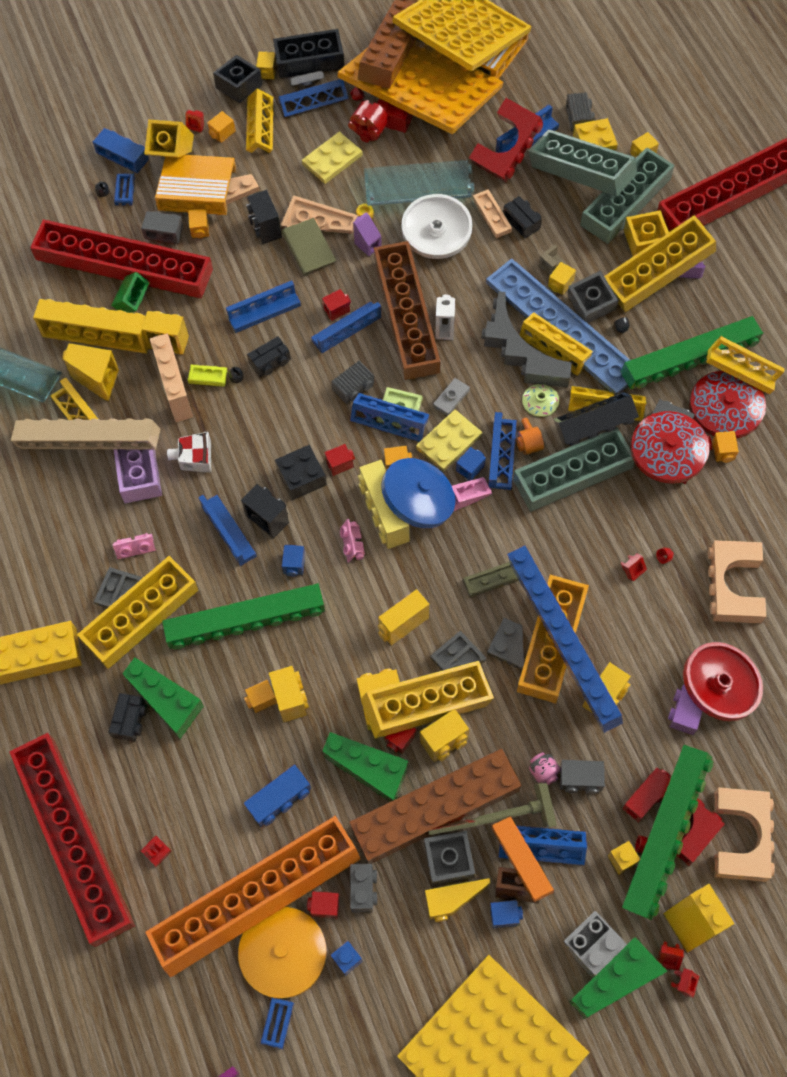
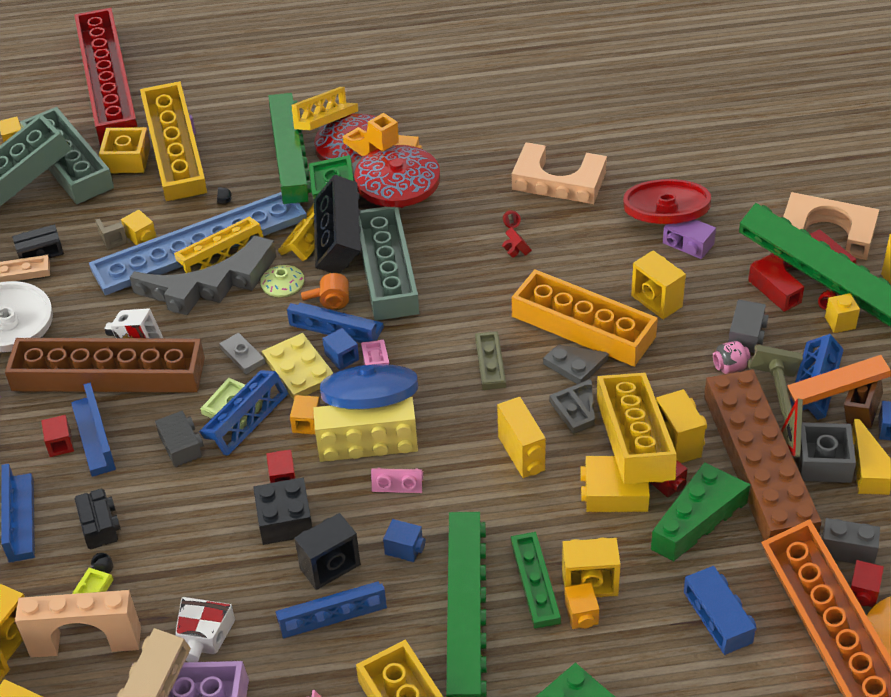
camera: 75 degrees left, 20 degrees down
(279, 658) = (535, 580): none -> green plate
(565, 640) = (596, 288): blue brick -> none
(592, 297) = (179, 204): dark grey brick -> none
(652, 396) = (324, 170): none -> green plate
(707, 412) = (380, 134): none -> light orange arch

